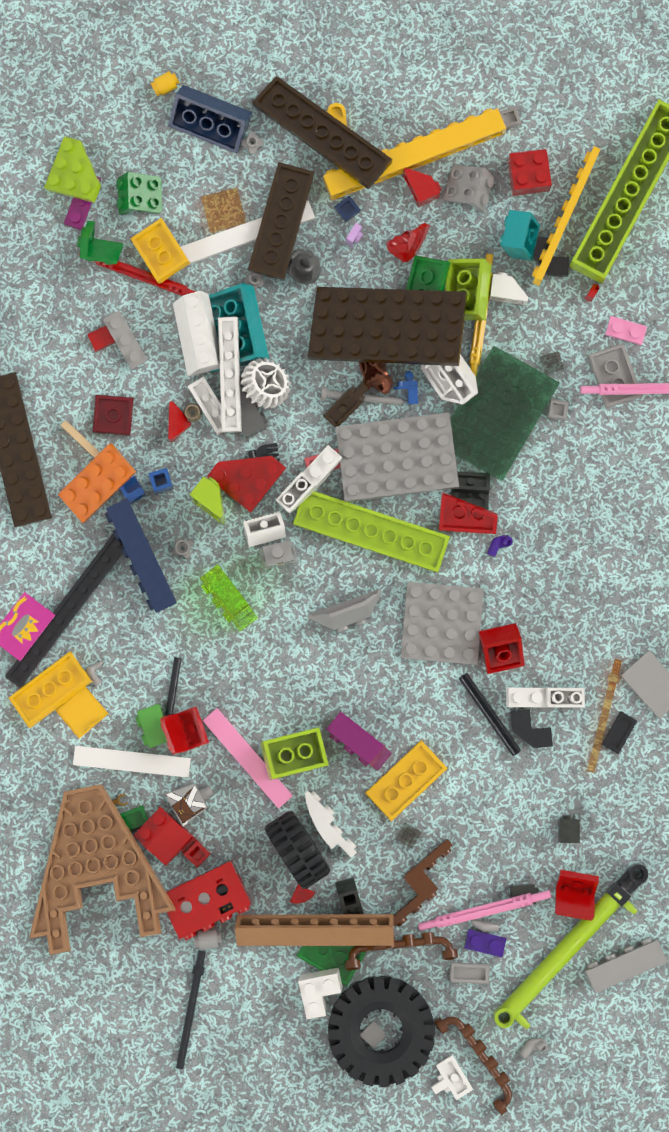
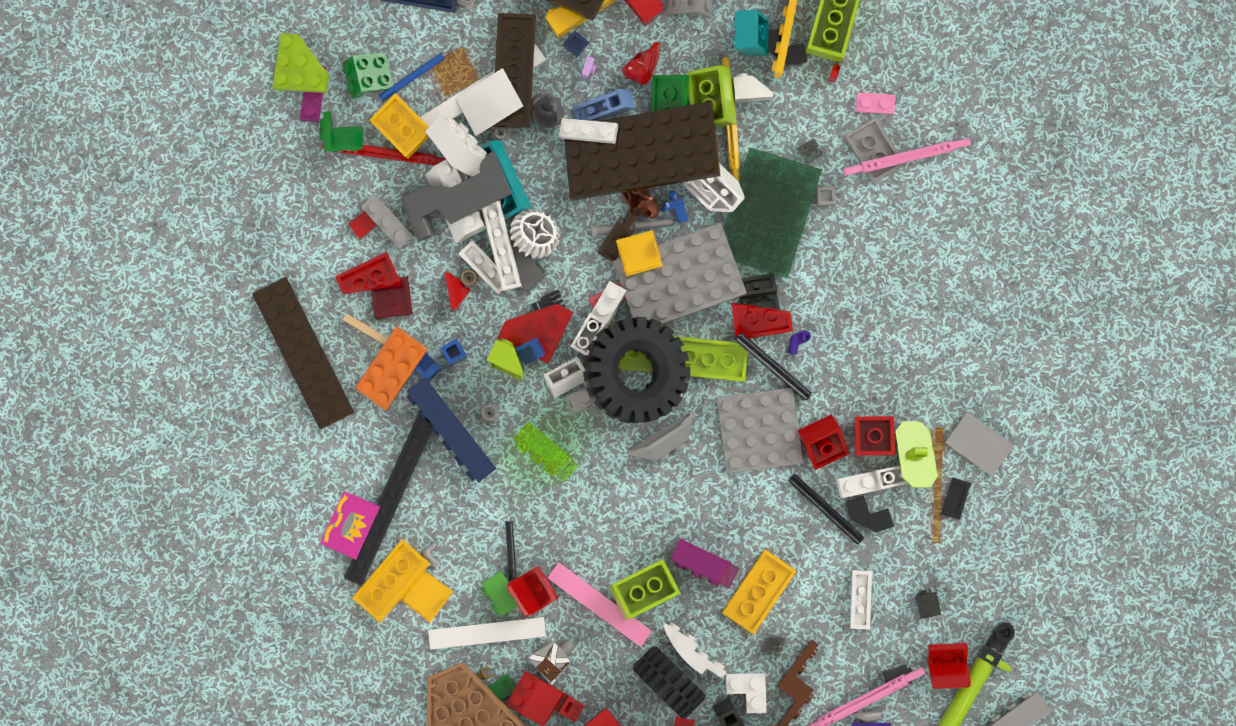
camera: 10 degrees left, 0 degrees up
(96, 389) = (369, 276): none -> red wing
(180, 206) = (411, 77): none -> blue bar
(196, 334) = (458, 200): none -> dark grey door
(209, 281) = (456, 145): none -> white brick
(236, 496) = (531, 350): none -> blue panel
(250, 246) = (489, 102): none -> white sticker
(340, 295) = (588, 130): none -> white plate
(361, 275) = (605, 106): none -> medium blue slope
(363, 424) = (639, 253): none -> yellow piece
(365, 531) = (667, 365): none -> black tyre
(379, 872) = (751, 685): none -> white brick
(468, 563) = (773, 366): none -> black axle
(504, 810) = (860, 599): none -> white plate
(552, 653) = (873, 436): none -> red brick
(590, 680) = (916, 454): none -> shield

